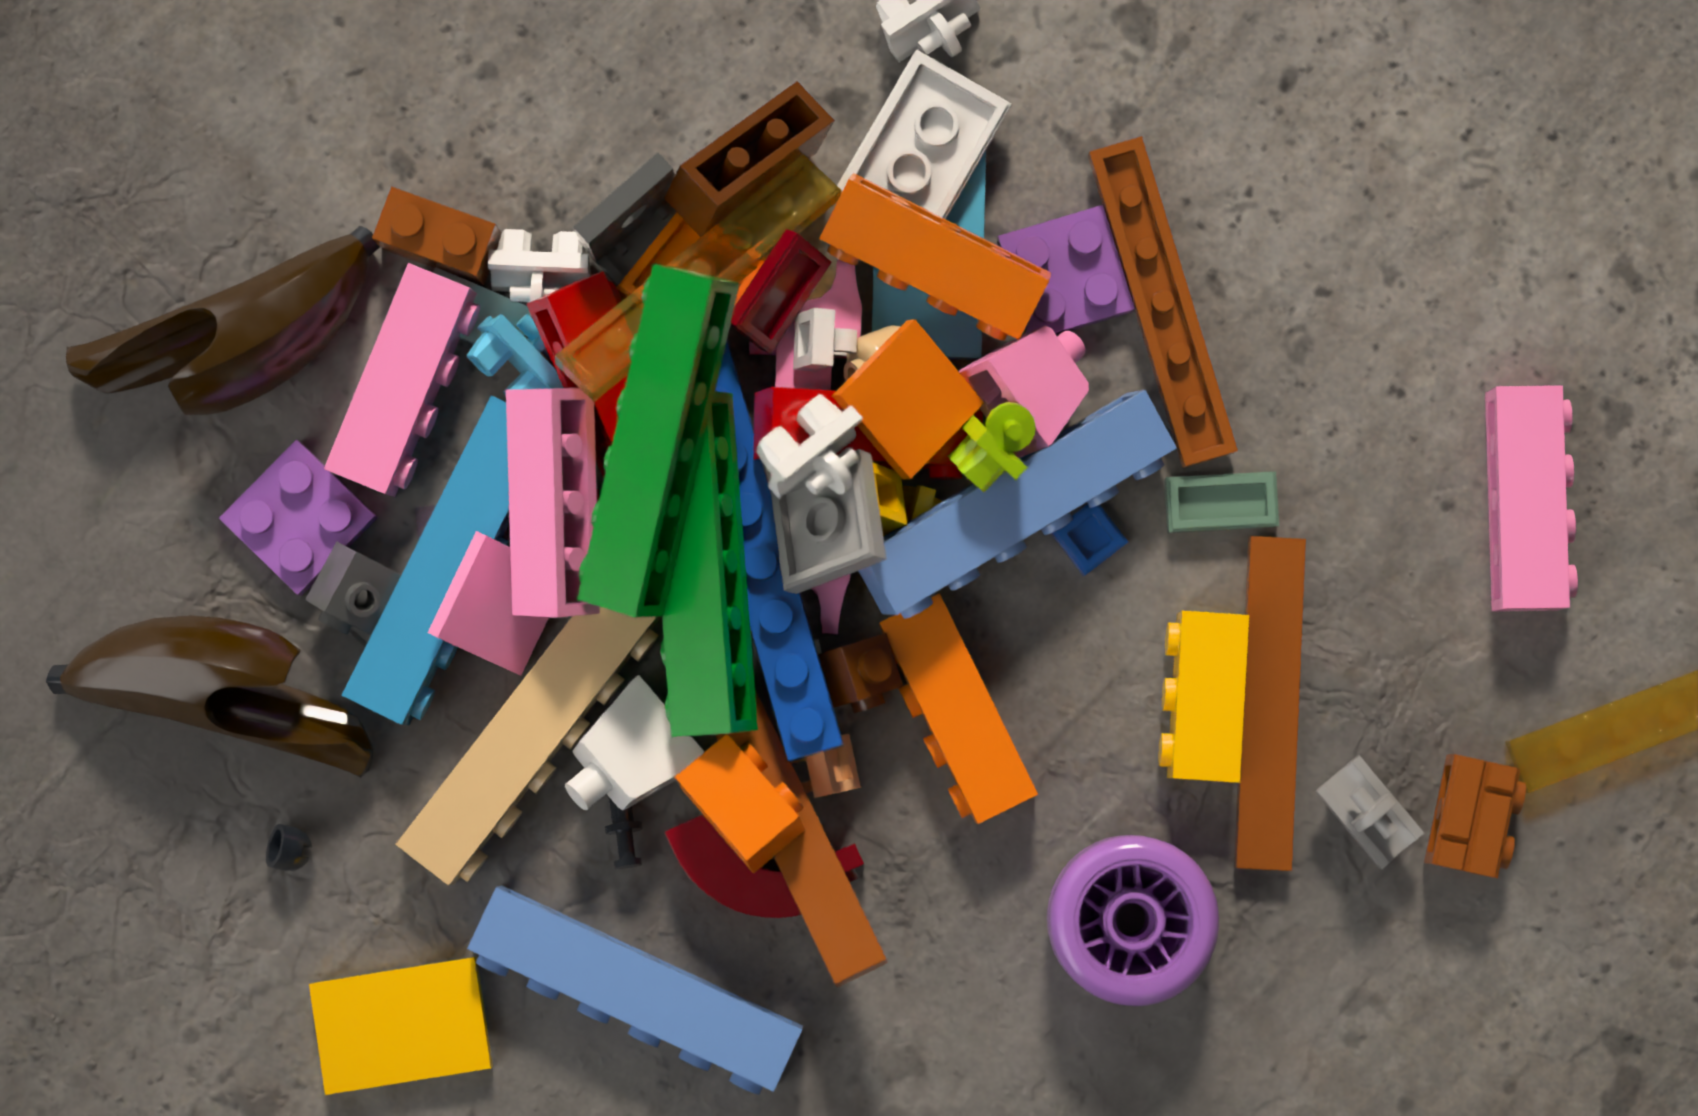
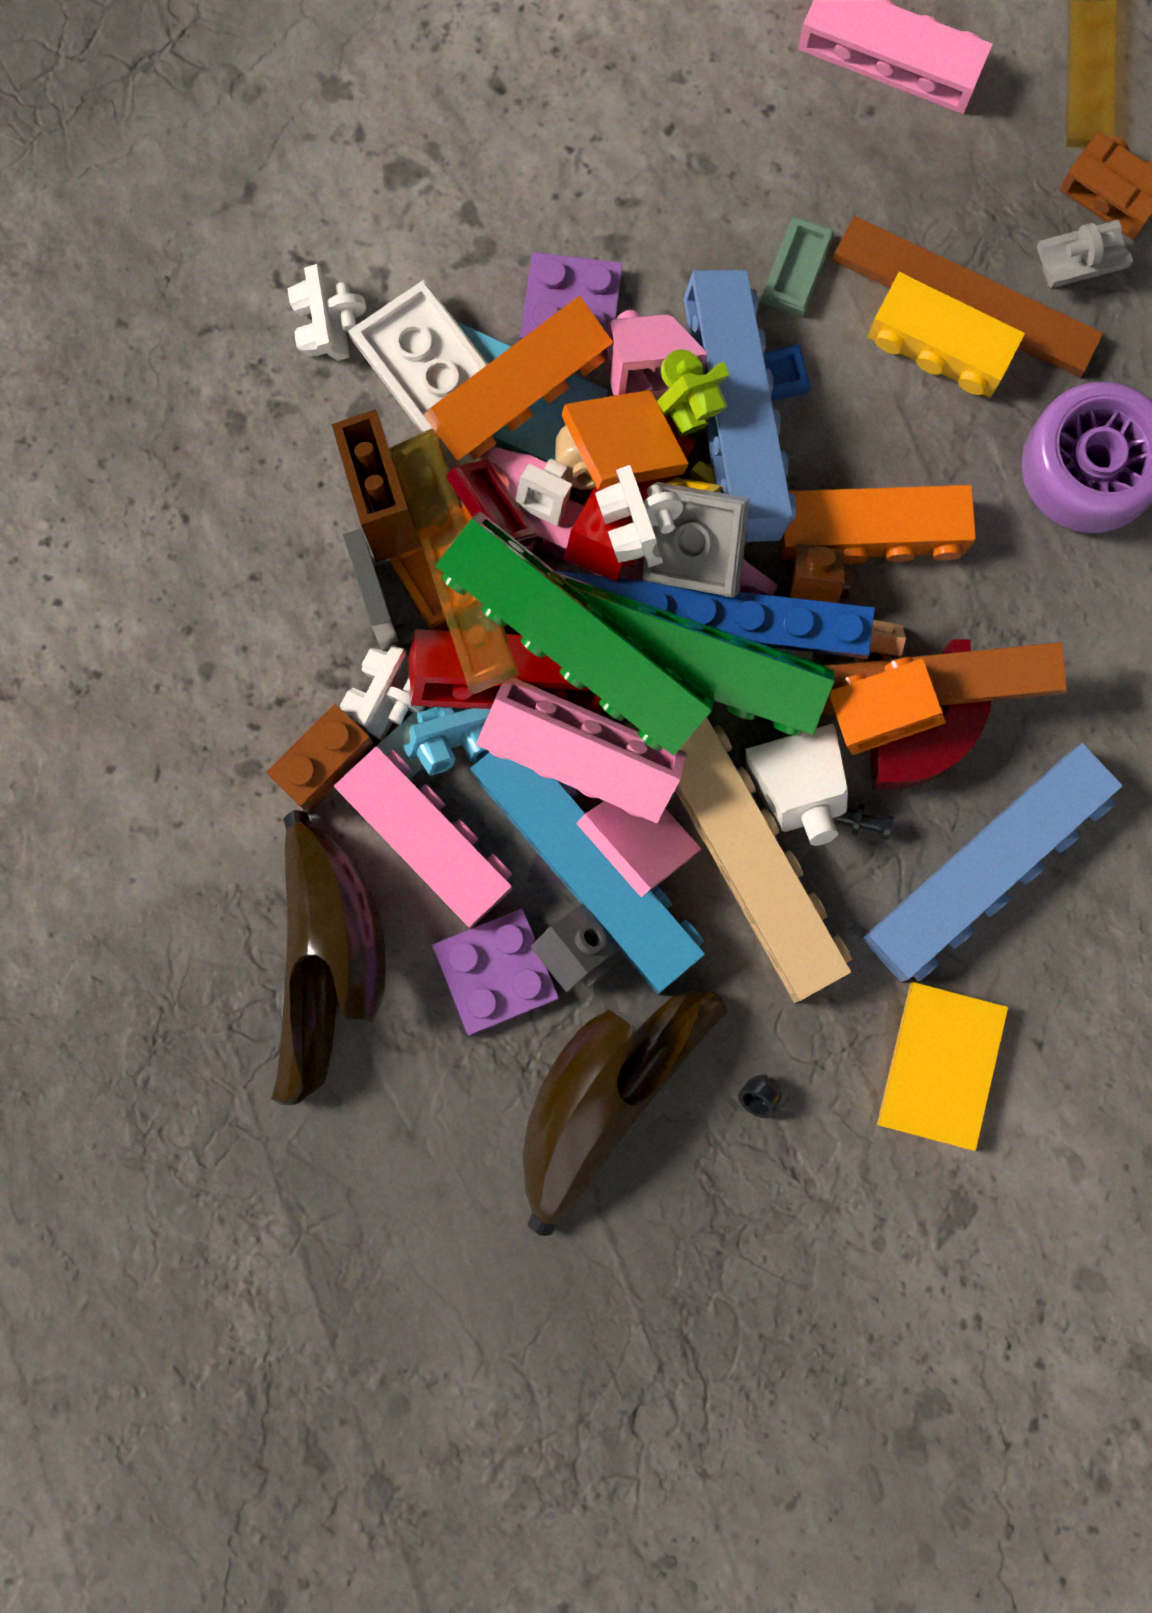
camera: 65 degrees left, 5 degrees down
(1162, 302) = (624, 239): dark orange plate -> none

